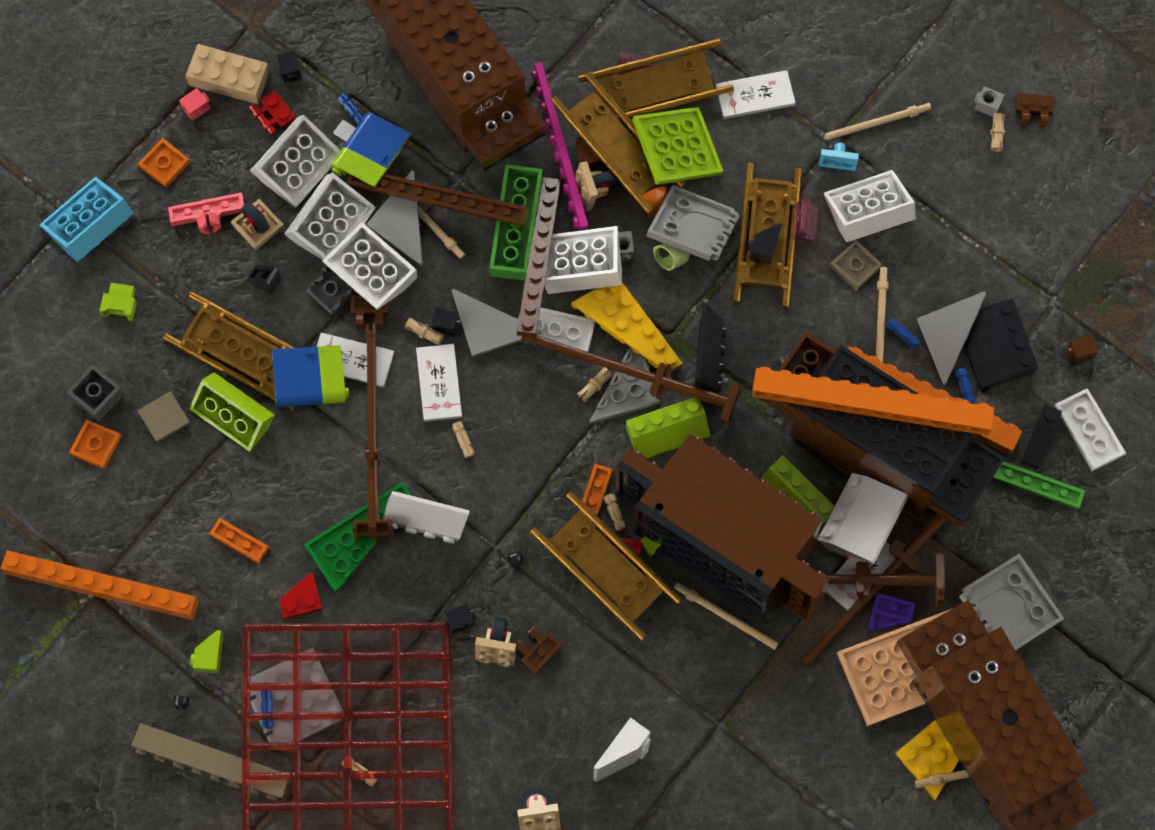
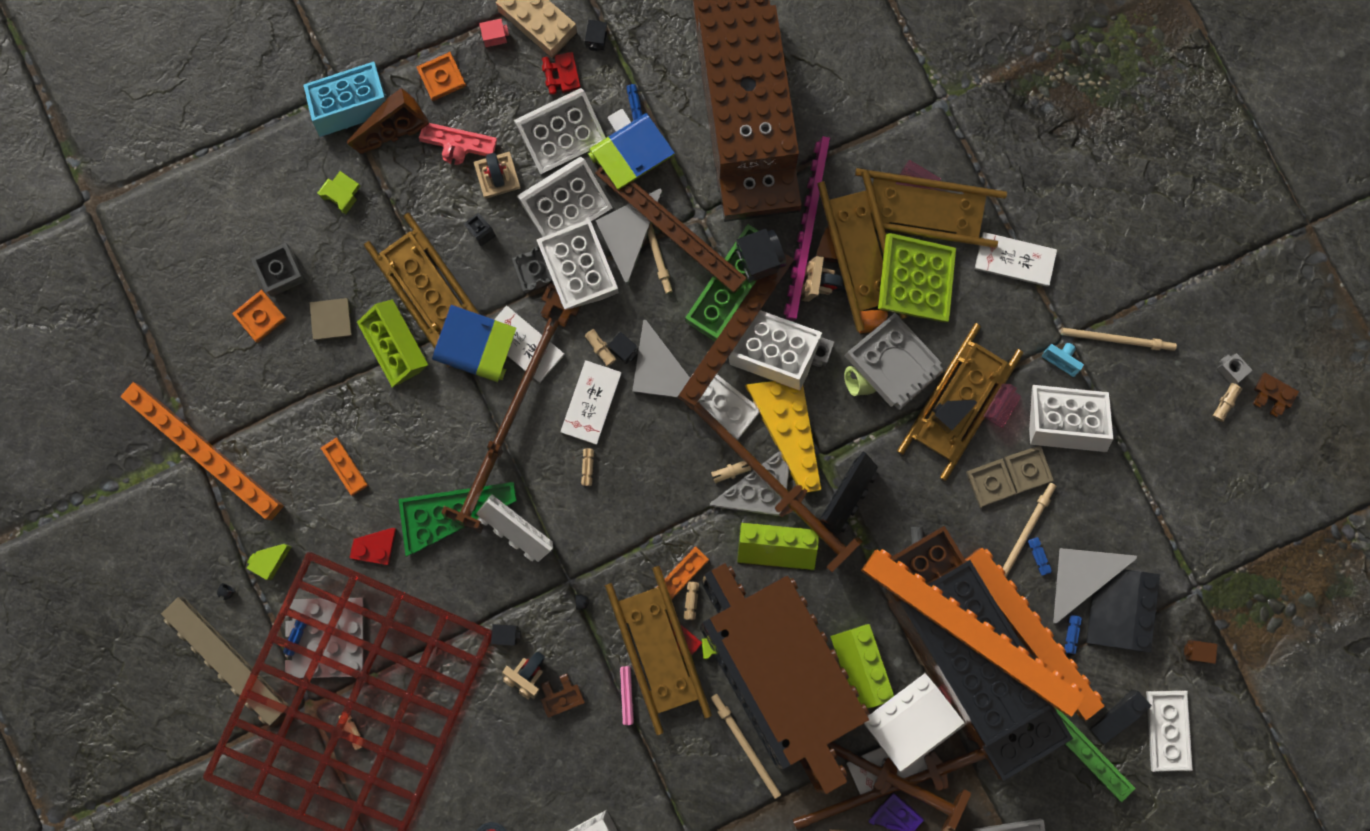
camera: 25 degrees right, 10 degrees up
(139, 216) = (392, 119): none -> reddish brown wedge
(530, 182) = (760, 254): none -> black piece
(597, 621) = (626, 692): none -> bright pink axle
(829, 291) = (991, 483): none -> dark tan tile

